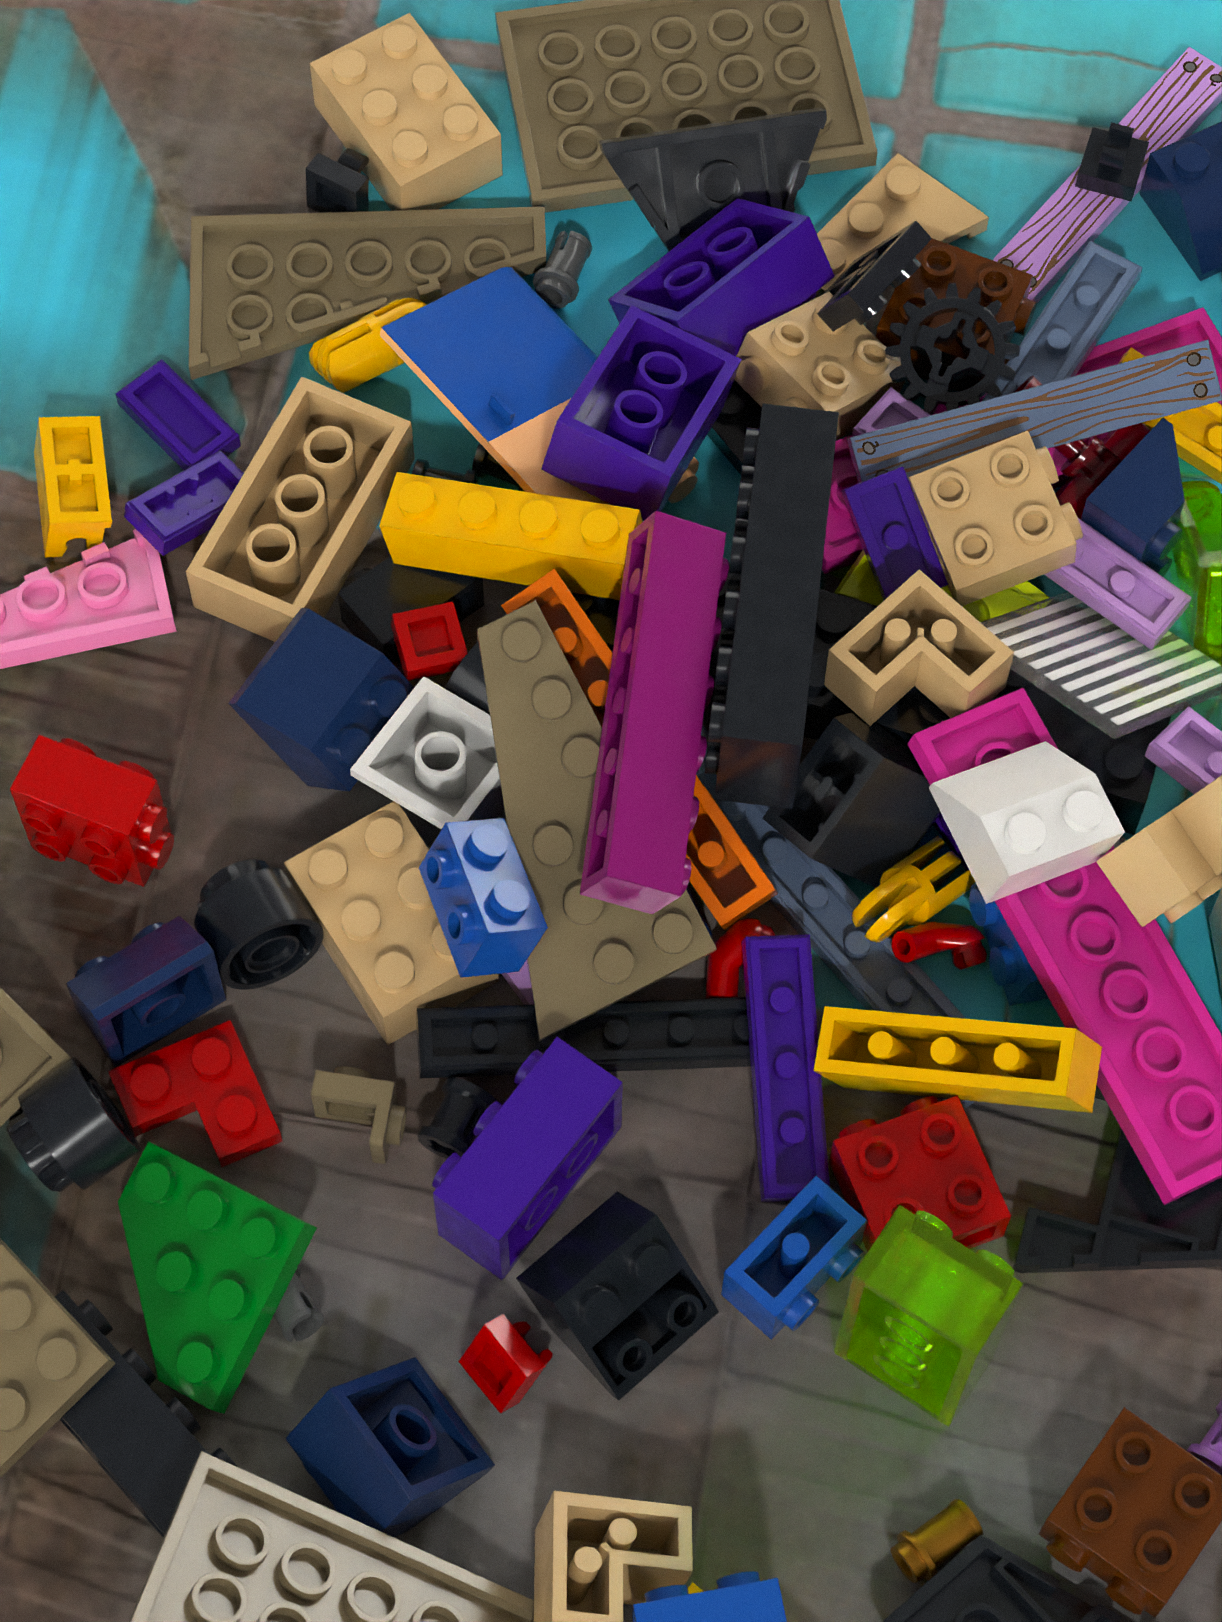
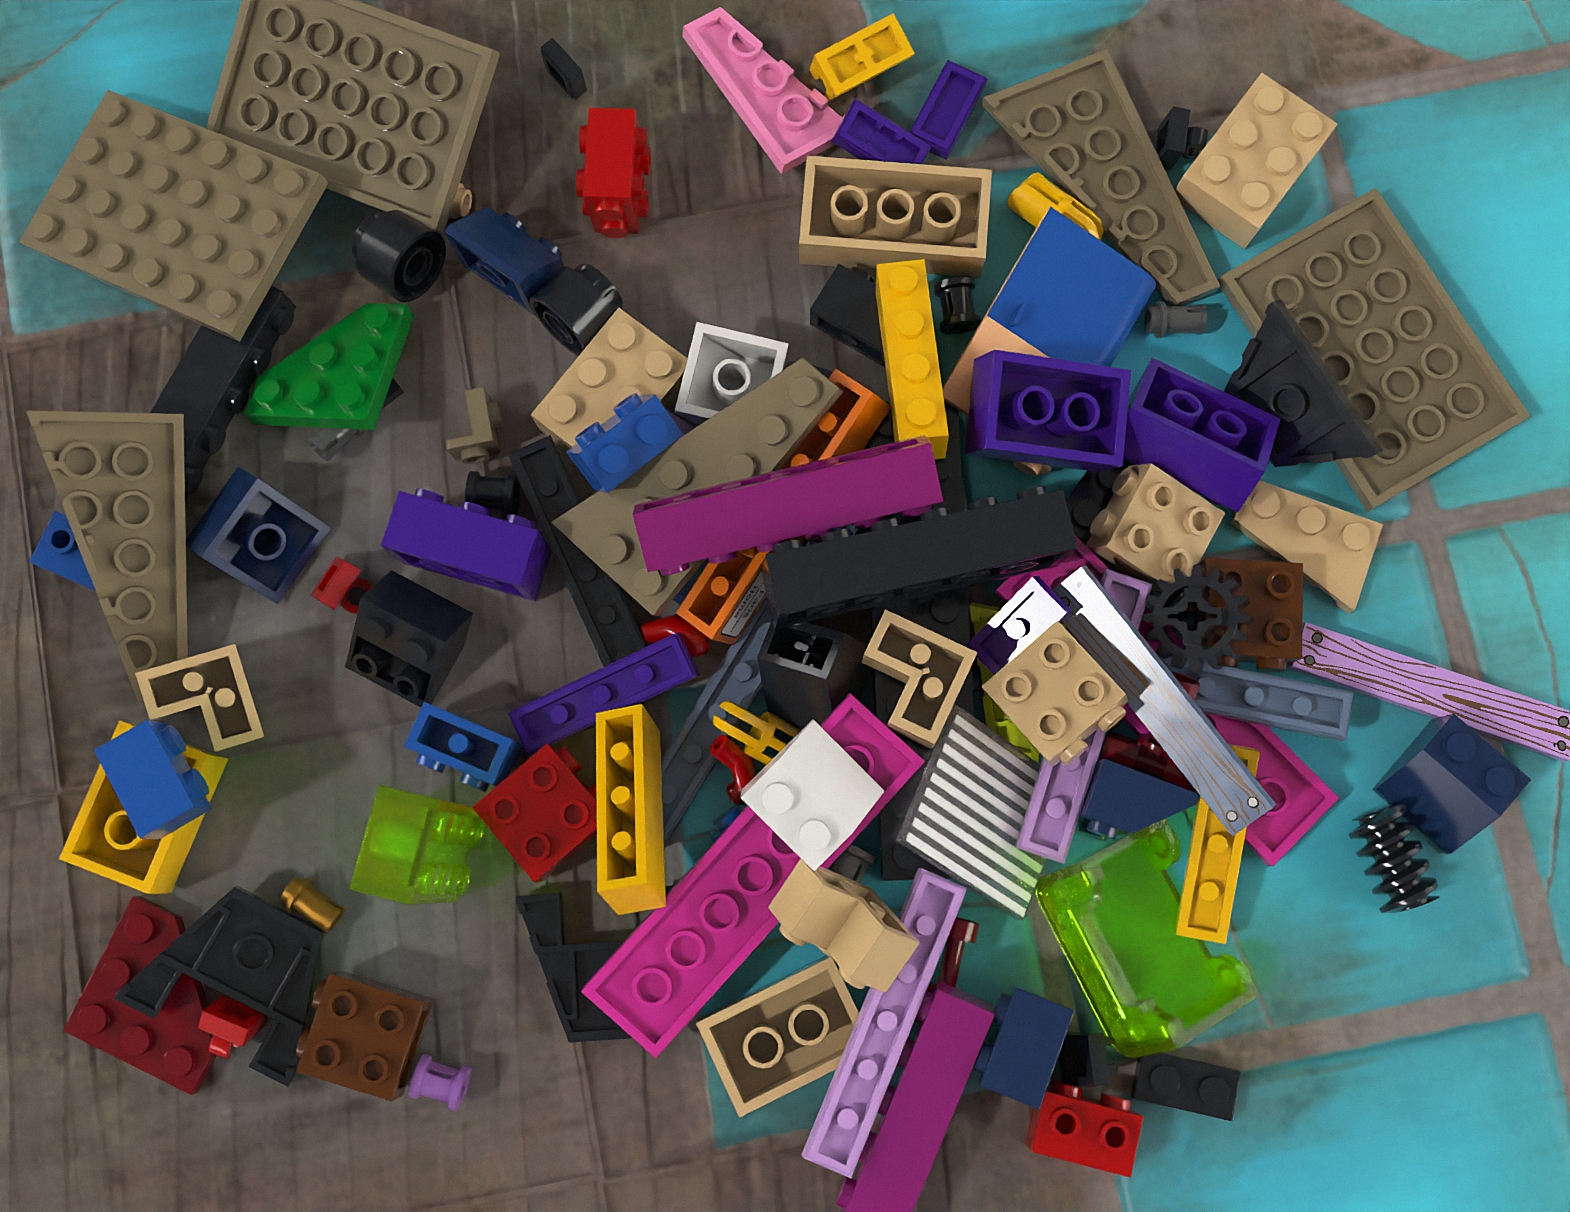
camera: 75 degrees right, 15 degrees up
(204, 1076) = (472, 328): red plate -> none
(320, 699) = (752, 282): dark blue slope -> none
(428, 640) = (820, 337): red tile -> none
(860, 287) = (1247, 537): black plate -> none
(1112, 162) = (1441, 688): black tile -> none

